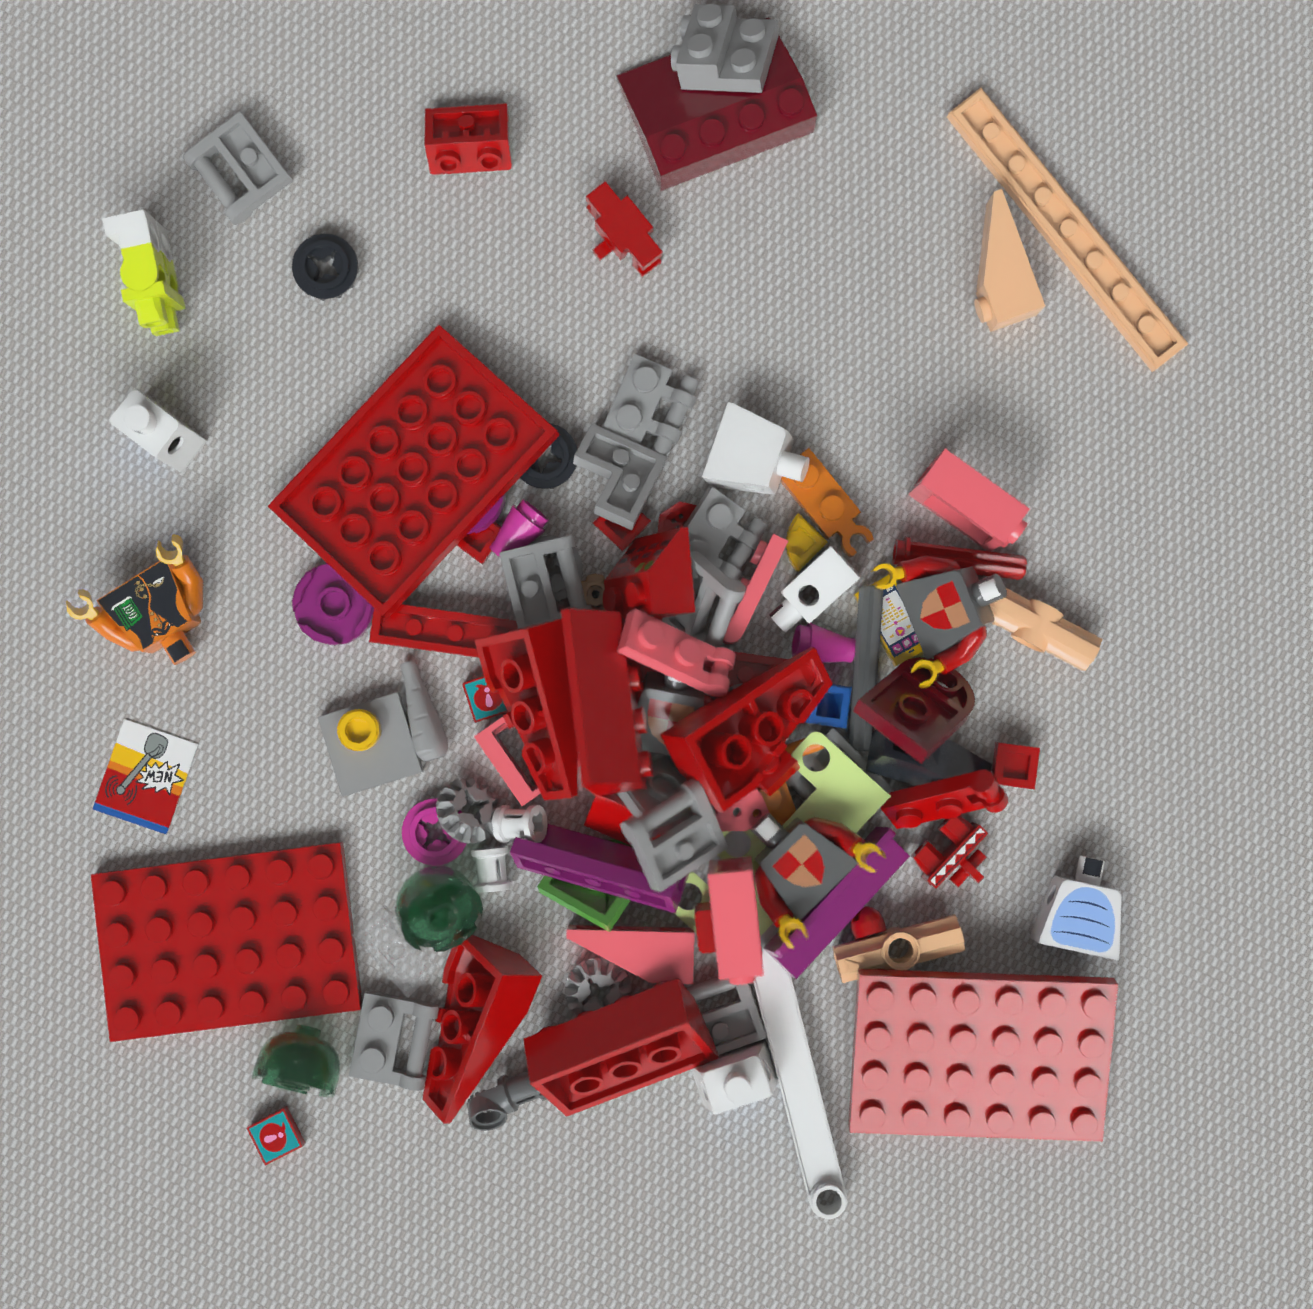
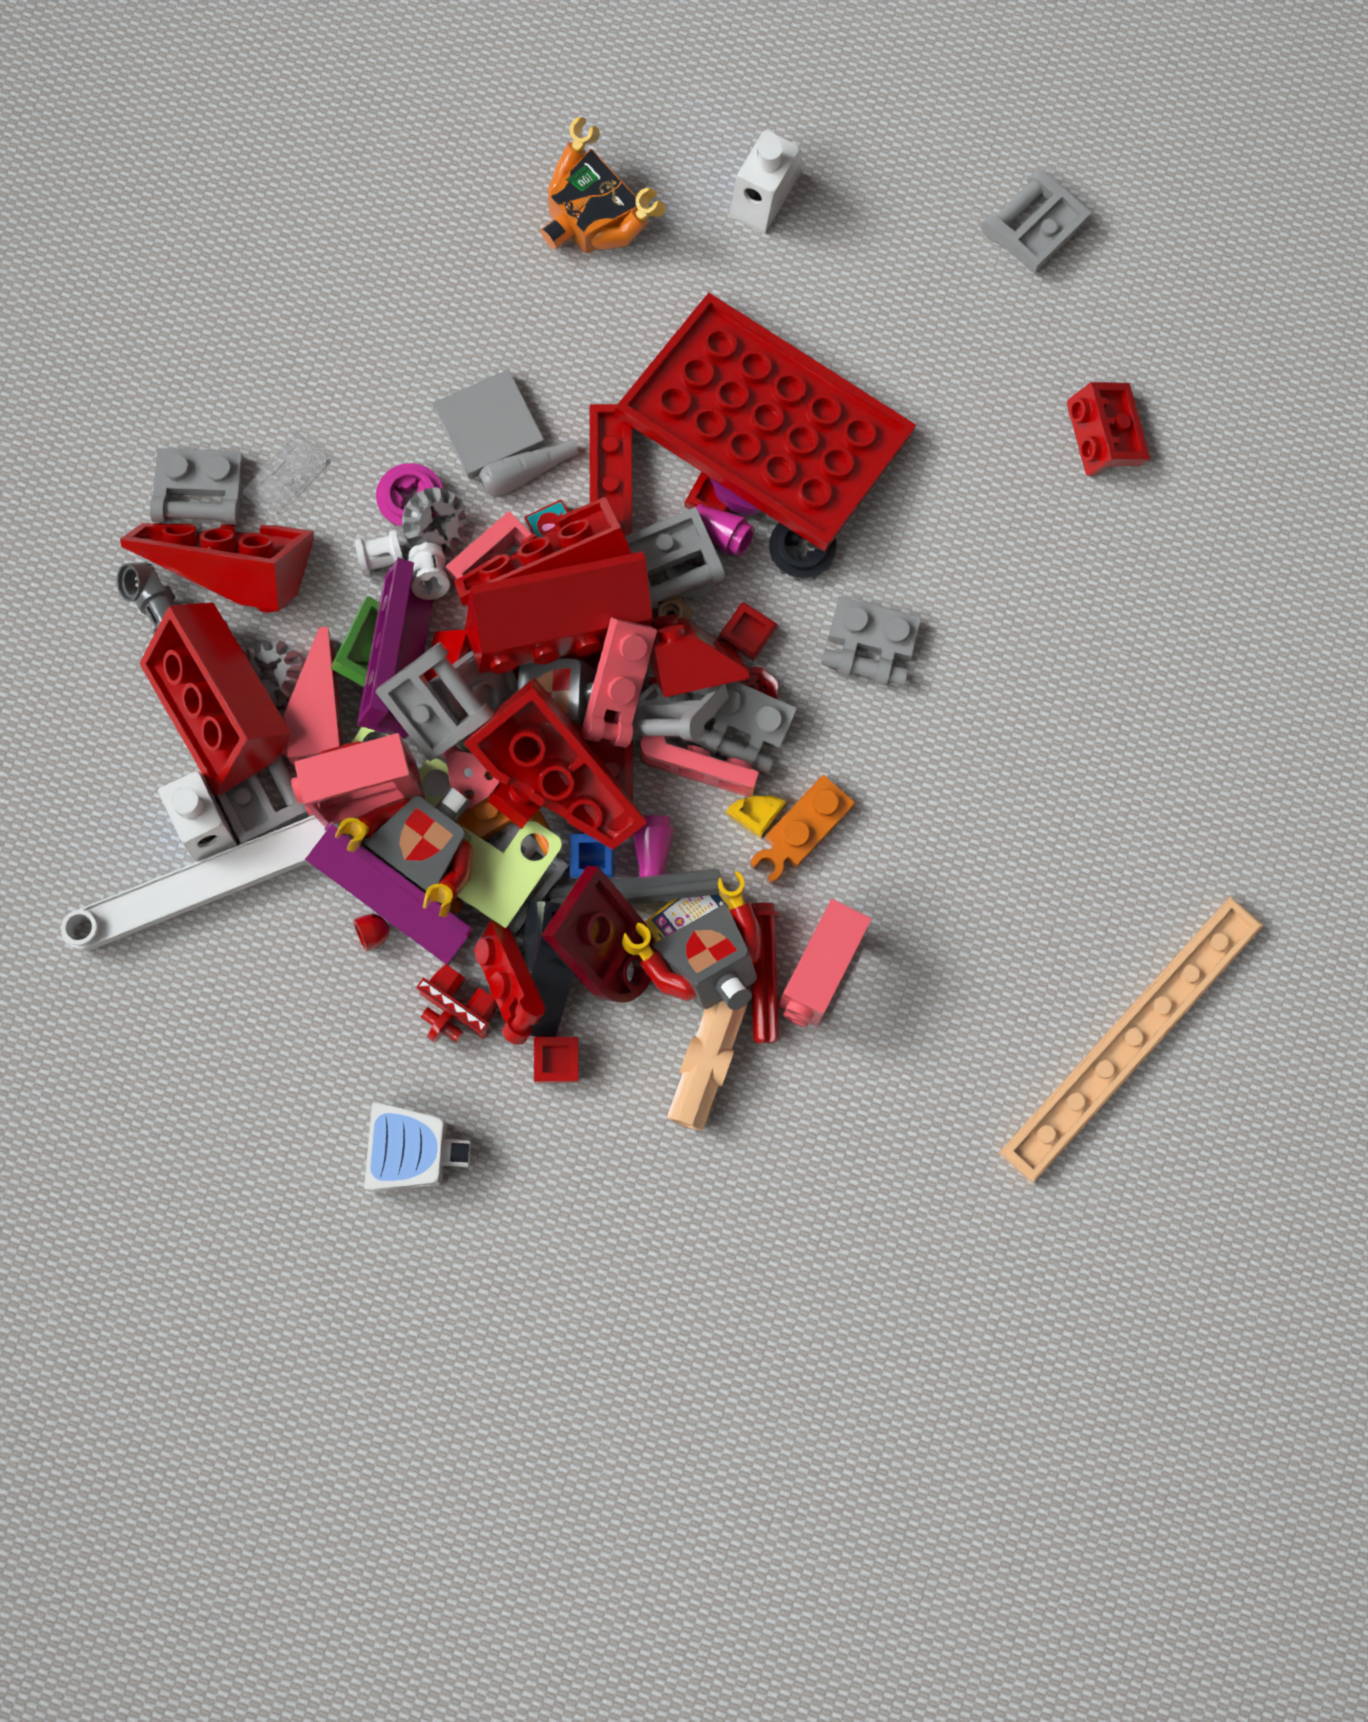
camera: 75 degrees right, 10 degrees down
(145, 776) = (428, 224): sticker -> none
(147, 270) = (917, 149): neon yellow hips -> none
(226, 941) = (277, 320): red plate -> none
(275, 1135) = (91, 390): tile -> none
(299, 1062) = (166, 397): clear green cylinder -> none
(324, 248) = (946, 298): black gear -> none
(330, 607) = (615, 364): magenta tile -> none
(359, 730) = (501, 407): yellow tile -> none
(437, 908) = (332, 501): clear green cylinder -> none
(622, 229) = (1043, 586): red piece -> none
(630, 472) = (798, 627): light grey plate -> none
(707, 130) = (1191, 661): dark red slope -> none
(724, 50) = (1245, 654): light grey plate -> none
(752, 454) = (837, 742): white torso -> none
(830, 576) = (712, 826): white torso -> none
(925, 942) = (338, 939): light nougat piece -> none
(981, 1054) = (248, 1064): plate -> none
(1005, 277) = (1069, 973): light nougat slope -> none

